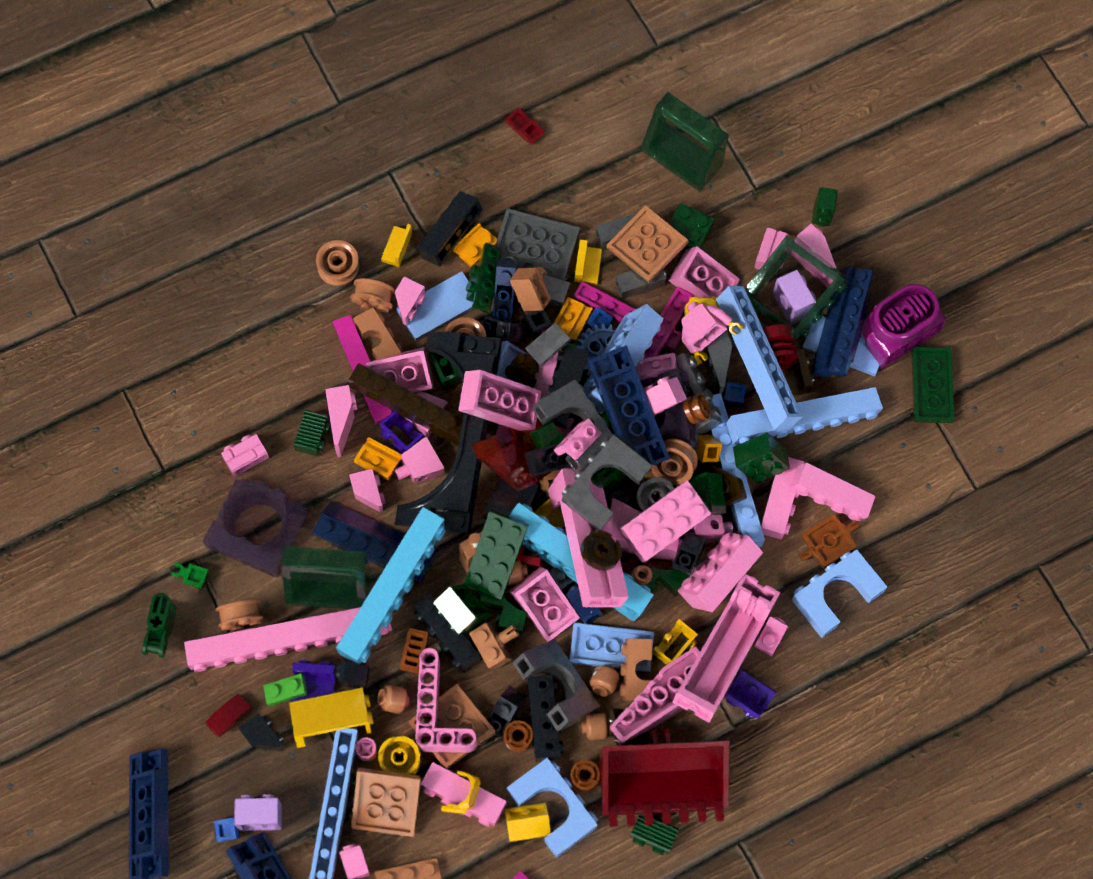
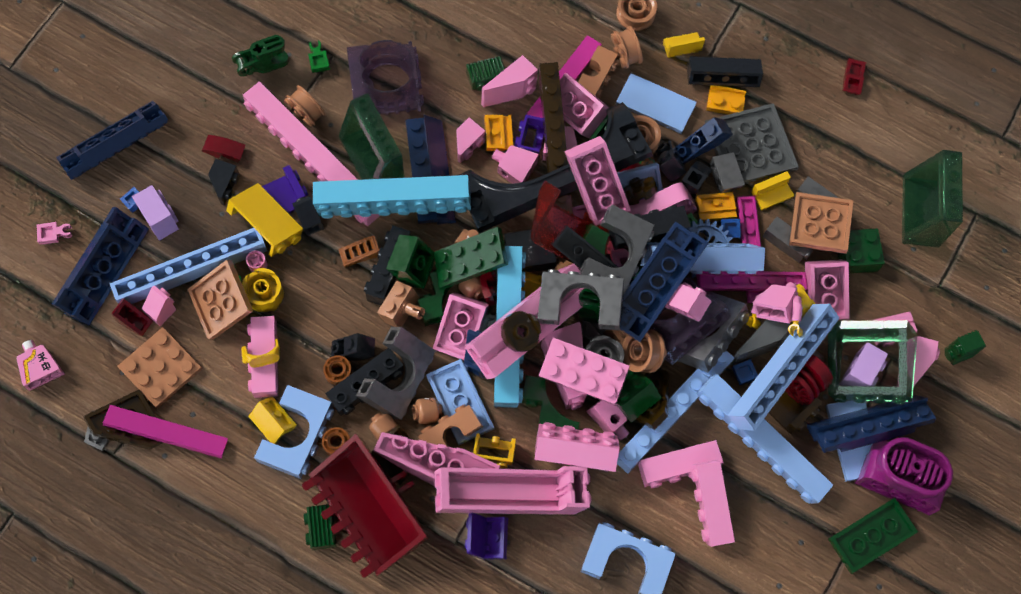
camera: 55 degrees right, 0 degrees up
(244, 454) = (436, 37): bright pink brick -> none
(285, 690) = (268, 176): bright green plate -> none
(393, 699) = (309, 257): nougat head -> none
(408, 297) = (642, 75): bright pink slope -> none
(431, 709) = (316, 290): bright pink beam -> none
(456, 711) = (313, 315): nougat plate -> none
(482, 279) = (690, 121): dark green bracket -> none
(530, 288) = (715, 154): nougat brick -> none
(548, 344) = (673, 191): flat silver panel -> none
(578, 439) = (604, 259): bright pink bracket -> none
(642, 569) = (532, 380): nougat plate -> none
(655, 365) = (714, 285): bright pink plate -> none
(689, 553) = (574, 412): black slope -> none
(696, 408) = (701, 340): dark orange wheel -> none
(708, 449) = (677, 374): light orange brick -> none
(761, 457) = (700, 423): dark green brick -> none
(771, 635) = (551, 526): bright pink bracket -> none
(828, 541) = (669, 526): dark orange plate -> none

